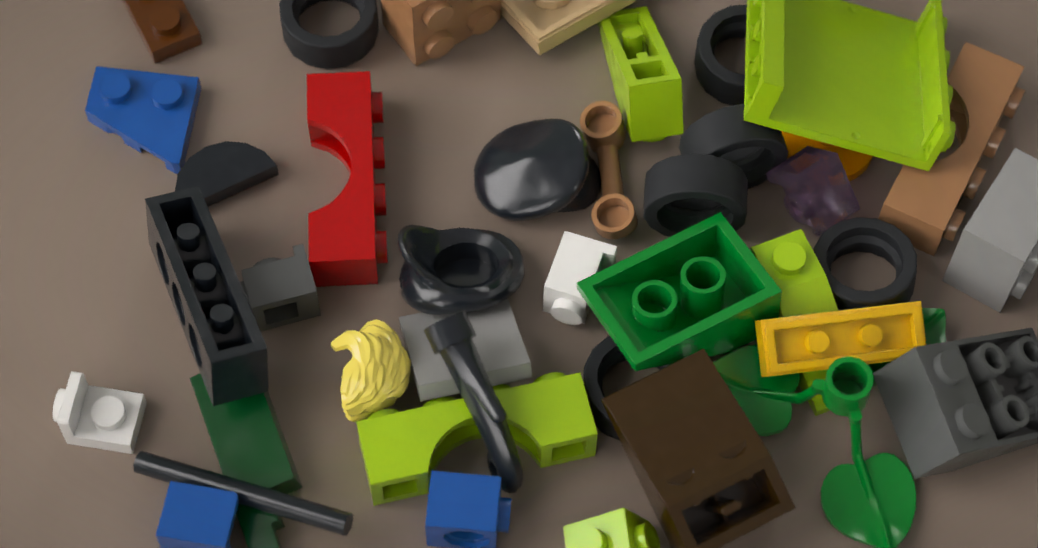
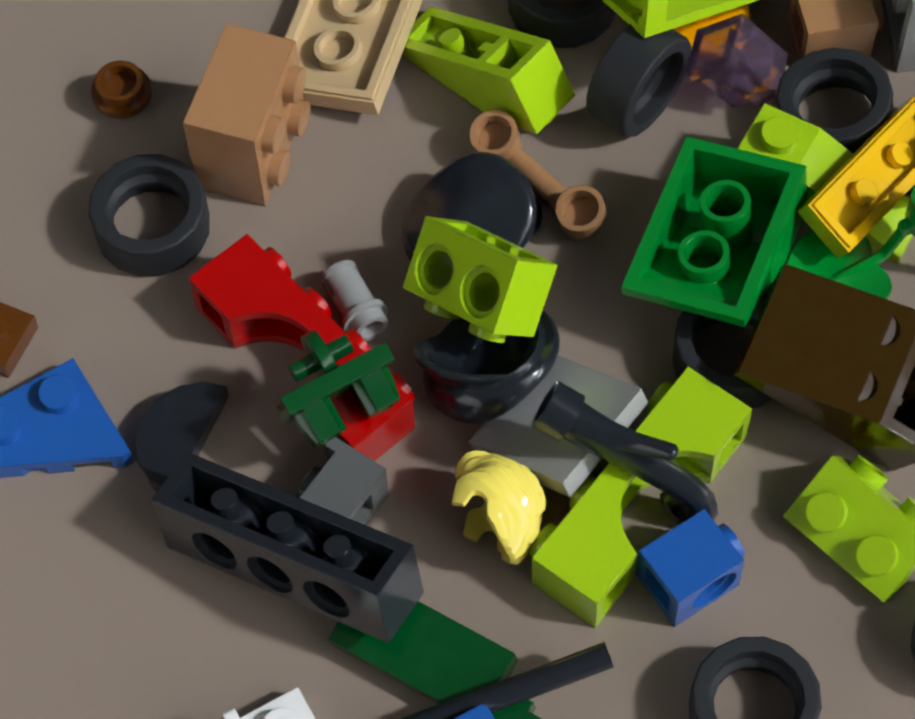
camera: 35 degrees left, 0 degrees up
(349, 216) = (312, 403): none -> dark green hips
(407, 180) = (355, 300): none -> light grey pin
(488, 208) = (479, 279): none -> lime brick
(574, 261) = (592, 287): white brick -> none
(691, 189) = (642, 140): black tyre -> none

